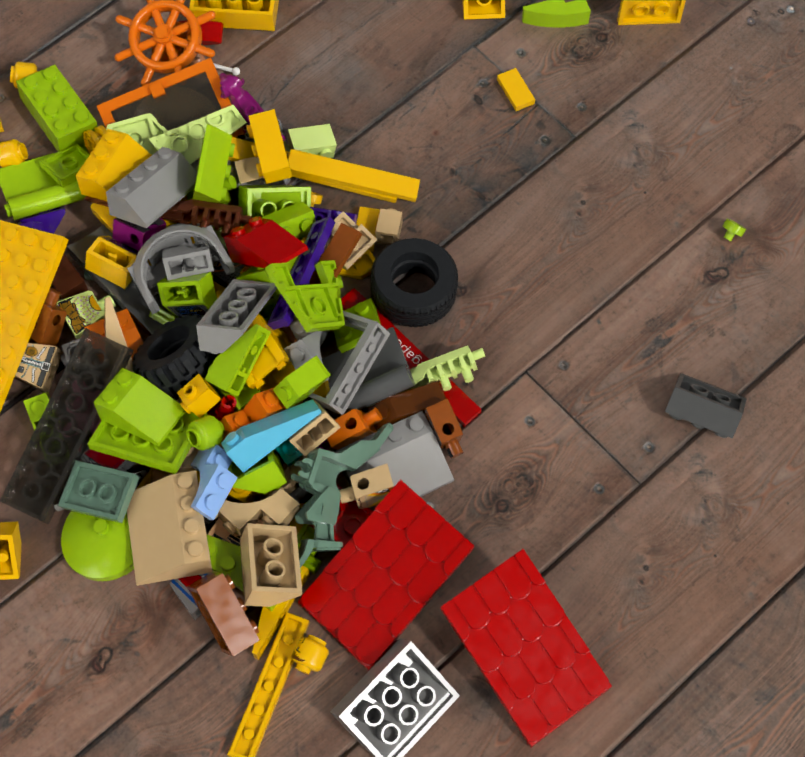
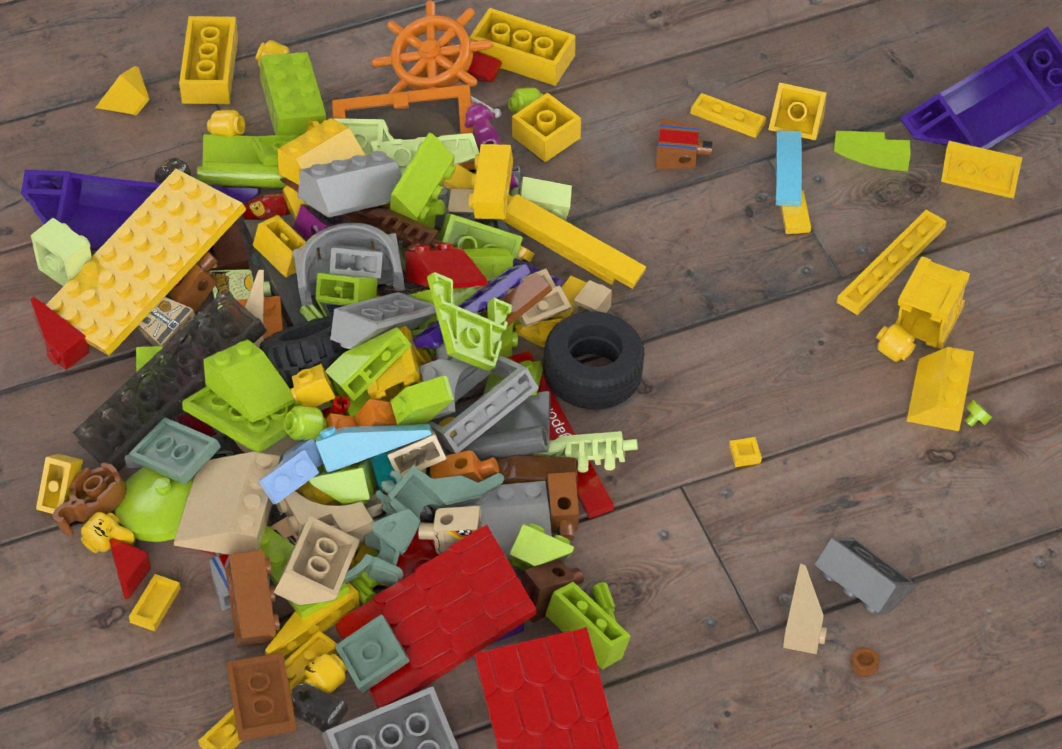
camera: 20 degrees right, 15 degrees down
(41, 552) = (91, 493): none -> dark orange piece
(62, 585) = (94, 532): none -> yellow head
(79, 225) = (266, 207): none -> red piece
(84, 585) = (121, 534): none -> yellow arm
(100, 608) = (131, 565): none -> red slope
(135, 634) = (154, 602): none -> yellow tile
(259, 55) = (522, 98): none -> lime head
(266, 696) = (261, 696): none -> dark orange plate
(285, 74) = (546, 127): none -> yellow brick
(320, 689) = (319, 708): none -> clear smoke piece
(344, 624) = (372, 653): none -> sand green plate
(400, 56) = (680, 145): none -> dark orange torso
(426, 15) = (728, 115): none -> yellow tile
(442, 481) = (537, 548): none -> lime slope
(464, 505) = (544, 580): none -> copper torso
(496, 51) = (788, 168): none -> medium azure slope
(507, 530) = (574, 609): none -> lime brick
(512, 504) = (604, 598): none -> lime axle
(565, 323) = (745, 452): none -> yellow tile
(611, 112) = (891, 262): none -> yellow plate
(645, 185) = (895, 342): none -> yellow head
(662, 141) = (932, 301): none -> yellow container
(674, 459) = (805, 618): none -> tan slope
(697, 215) = (941, 388): none -> yellow slope
(735, 483) = (865, 661): none -> dark orange tile

